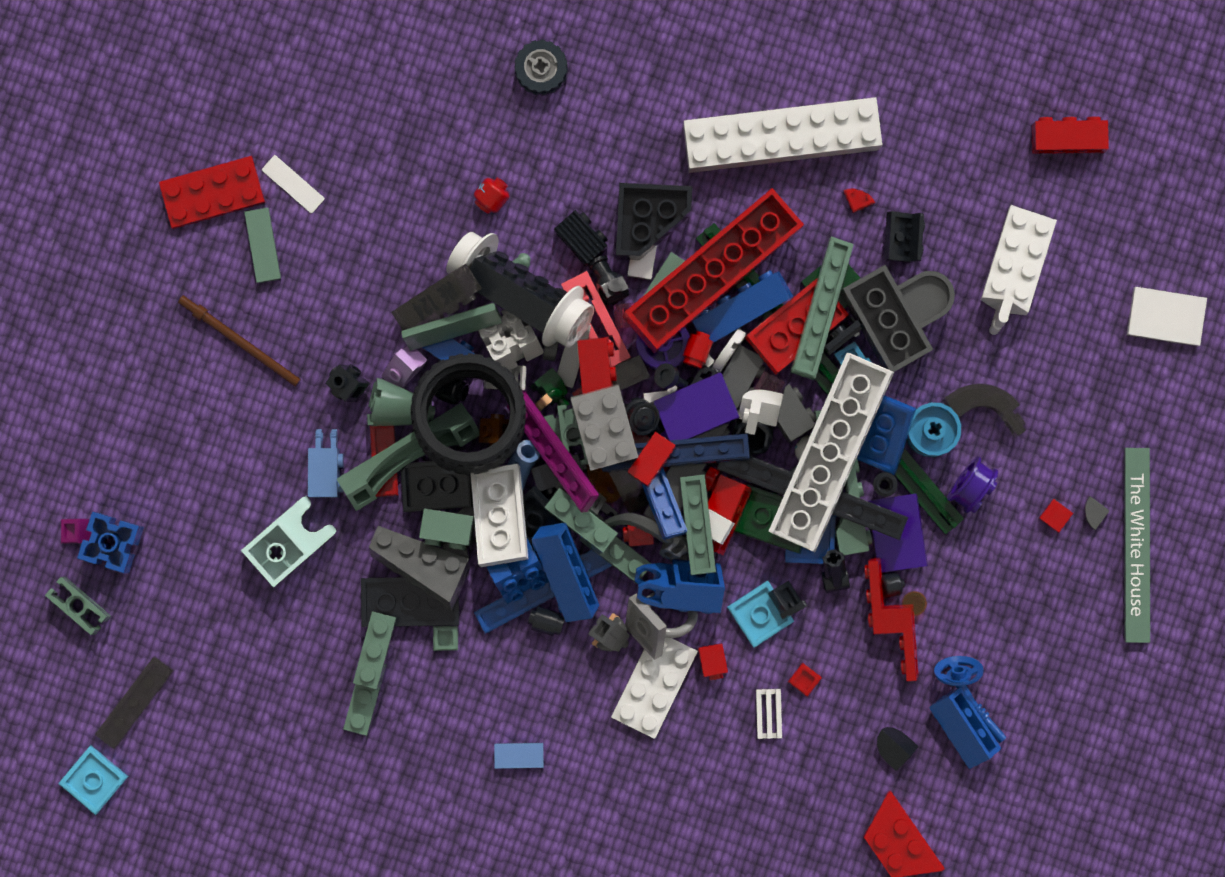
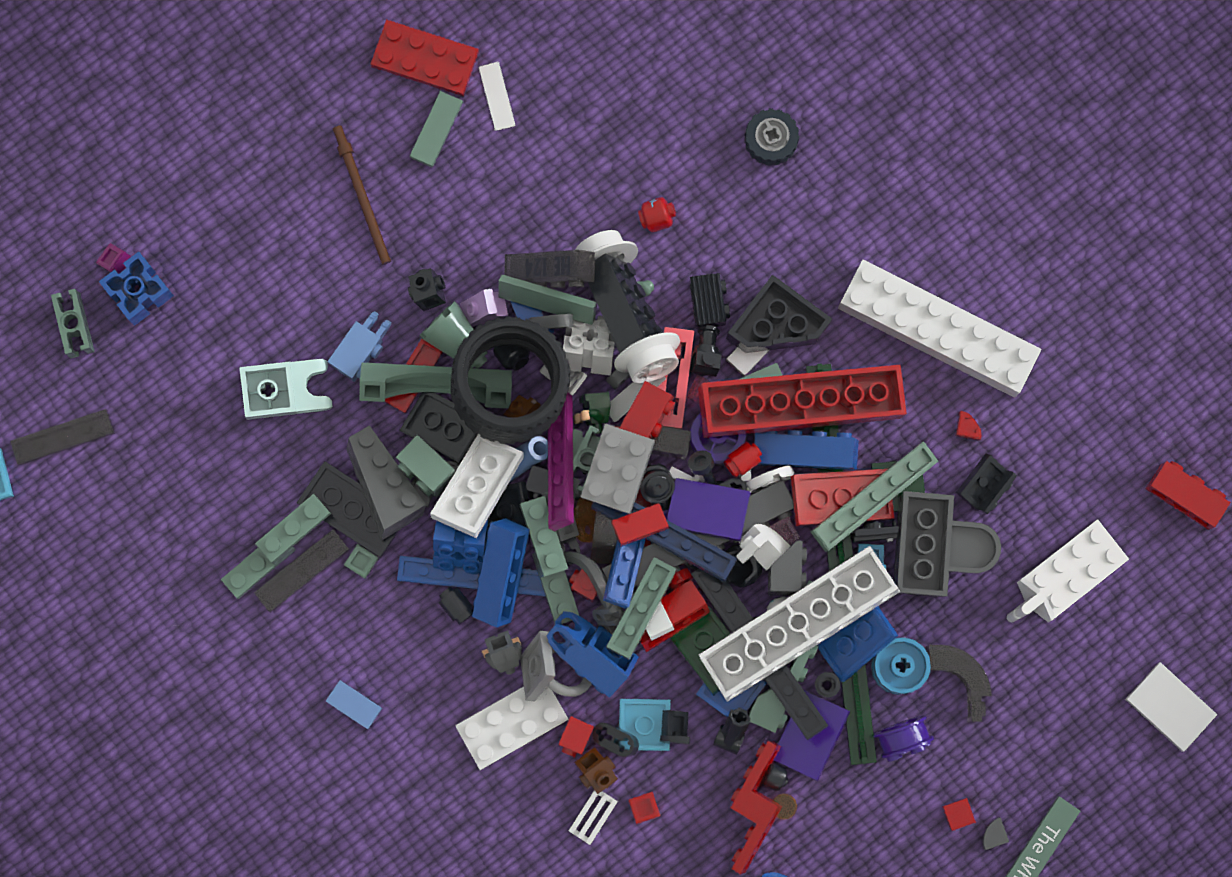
camera: 30 degrees right, 5 degrees down
(403, 678) = (301, 571): none -> clear smoke tile
(469, 342) = (554, 321): none -> dark grey beam
(746, 647) = (612, 744): none -> black beam
(752, 678) = (596, 770): none -> reddish brown brick

